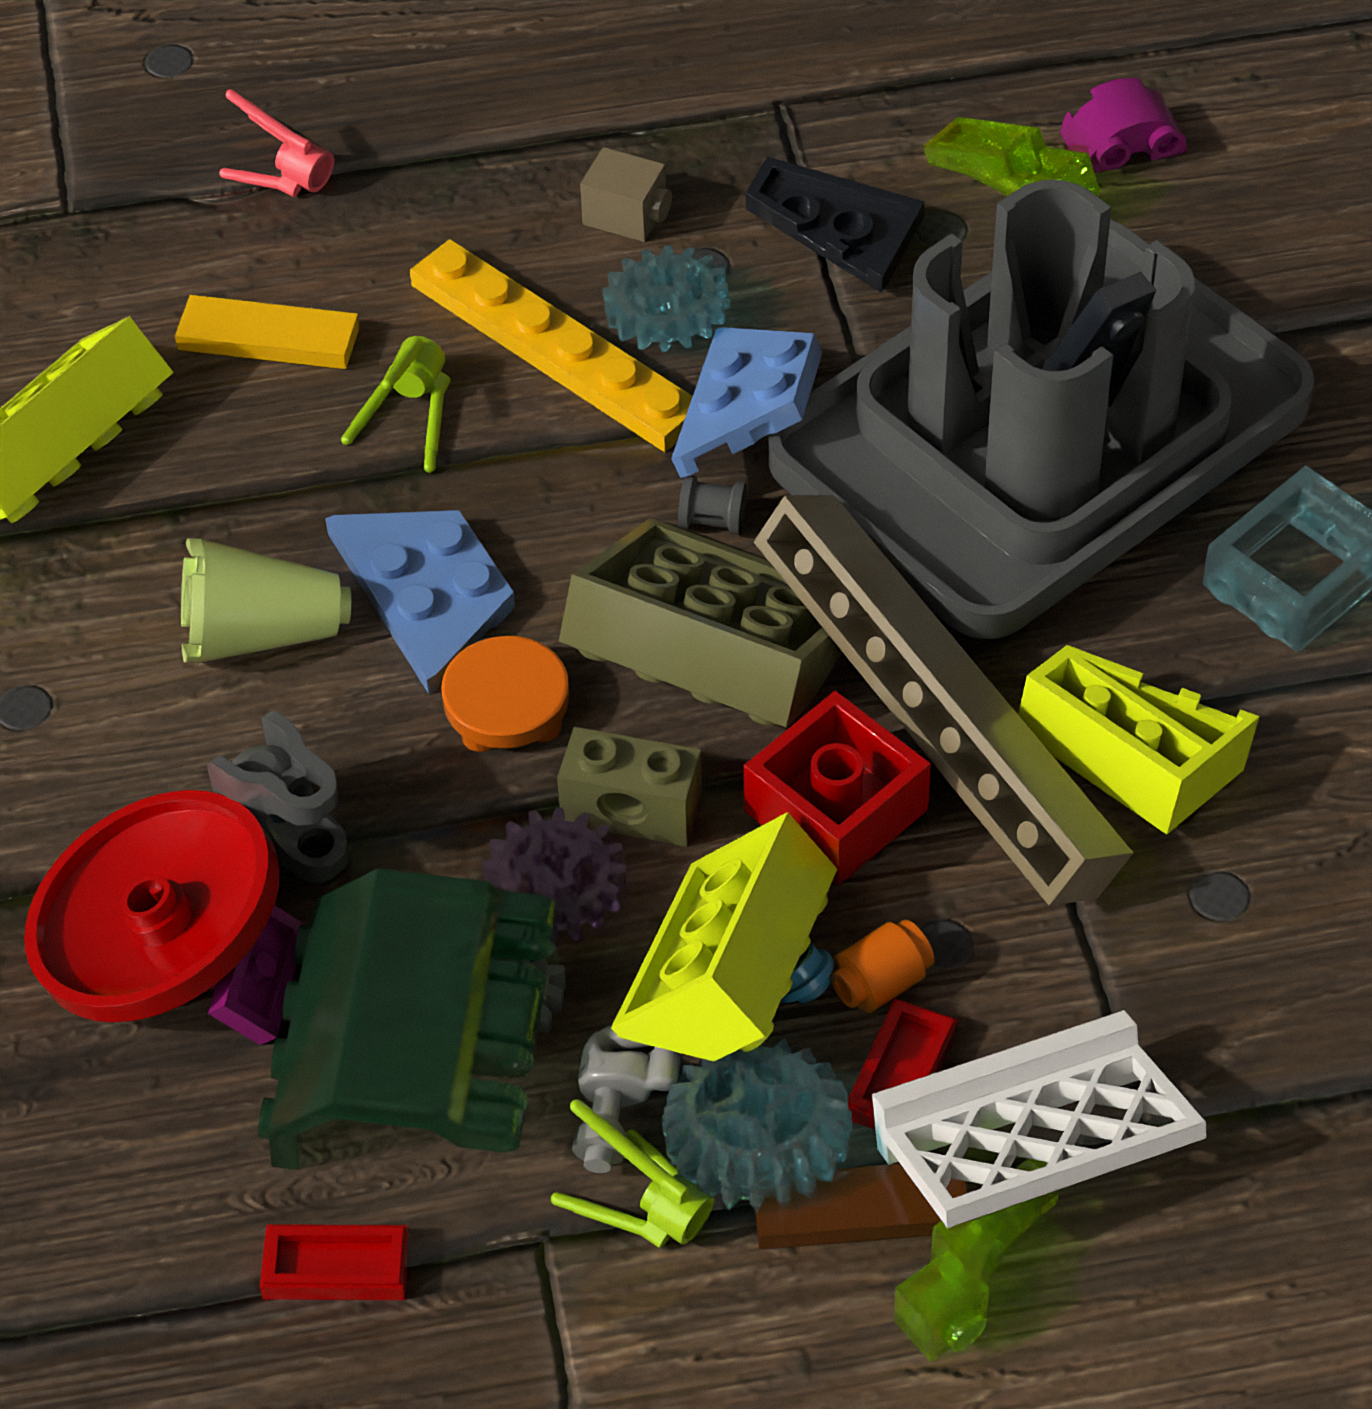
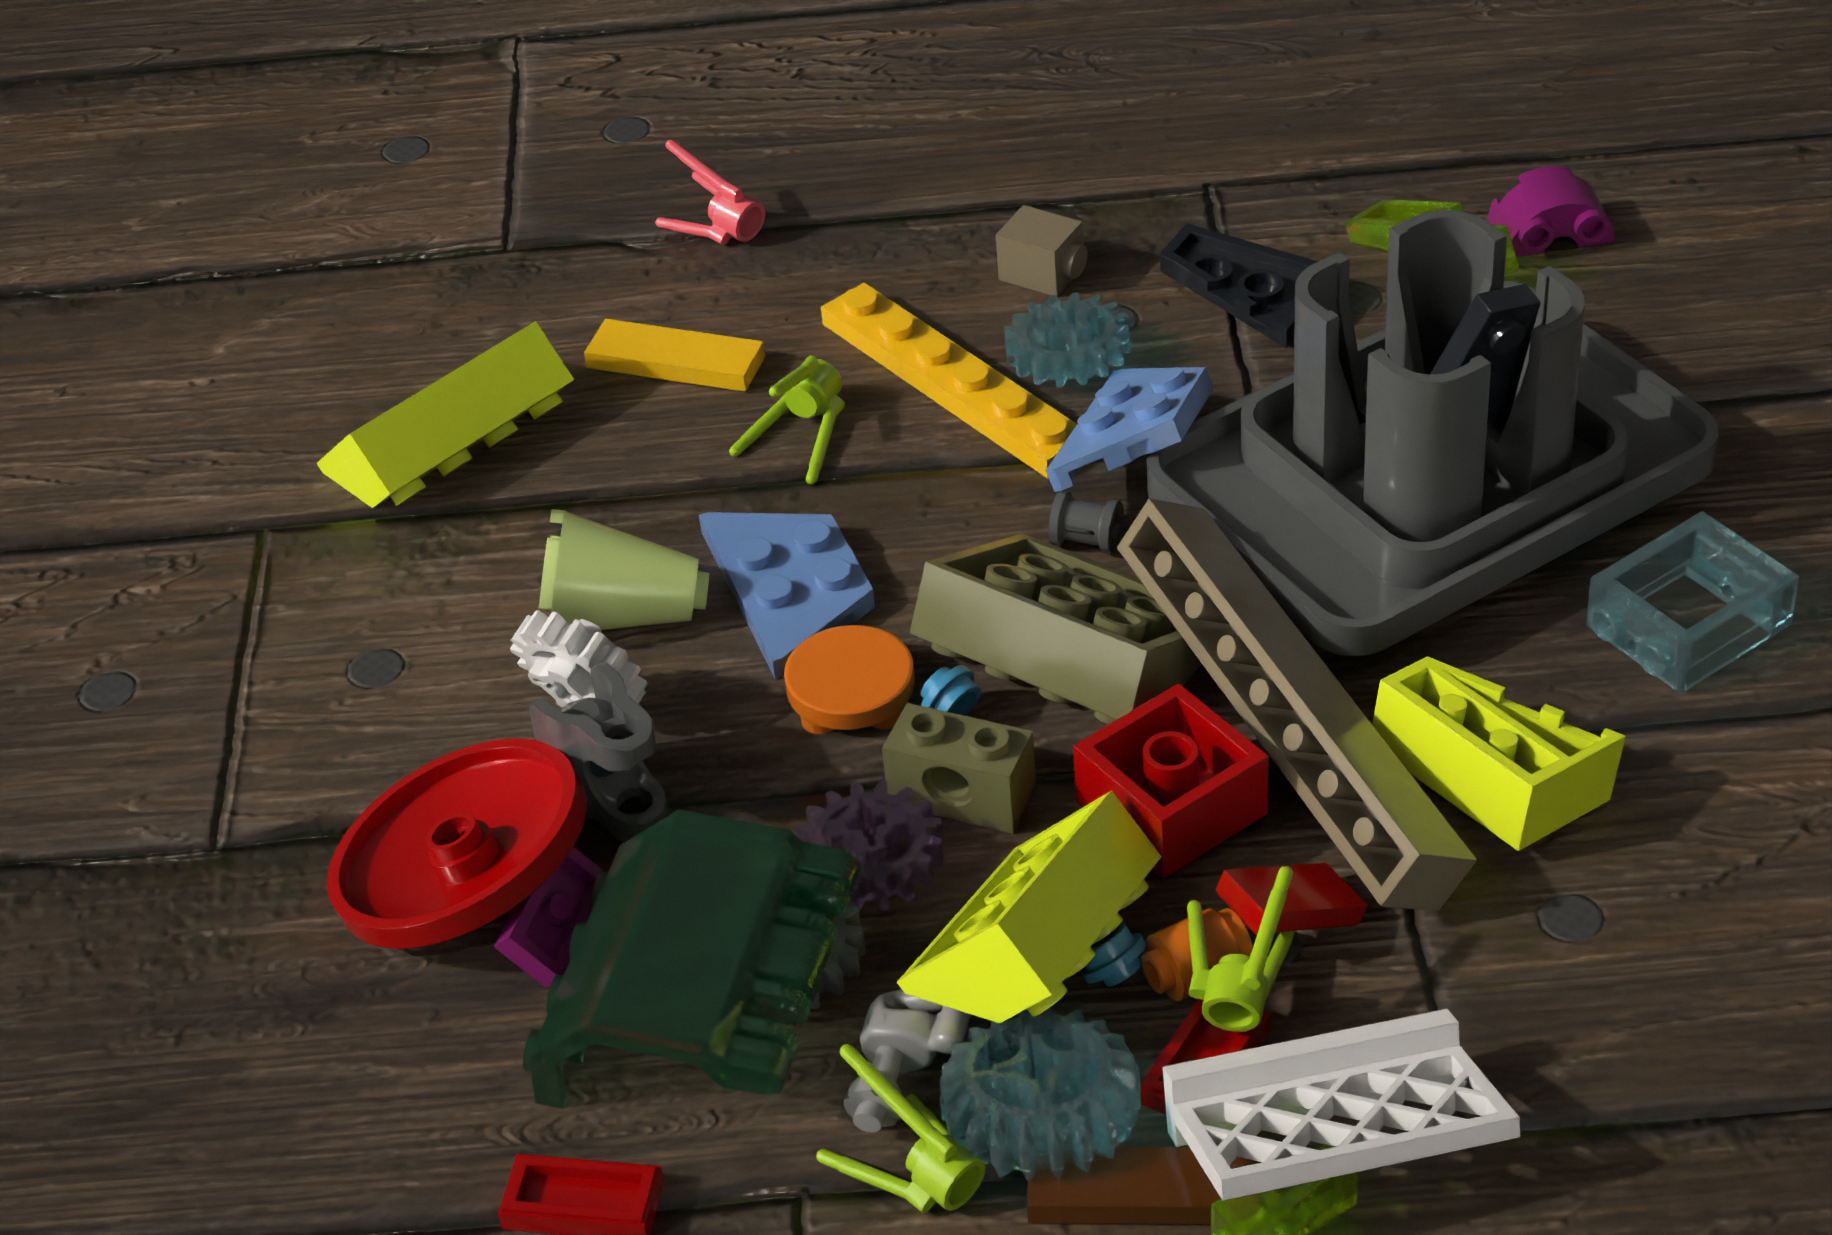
camera: 10 degrees right, 10 degrees down
(234, 700) = (563, 654): none -> white gear
(607, 705) = (951, 690): none -> dark azure plate
(929, 1001) = (1240, 983): none -> lime plant
(964, 903) = (1313, 900): none -> red tile

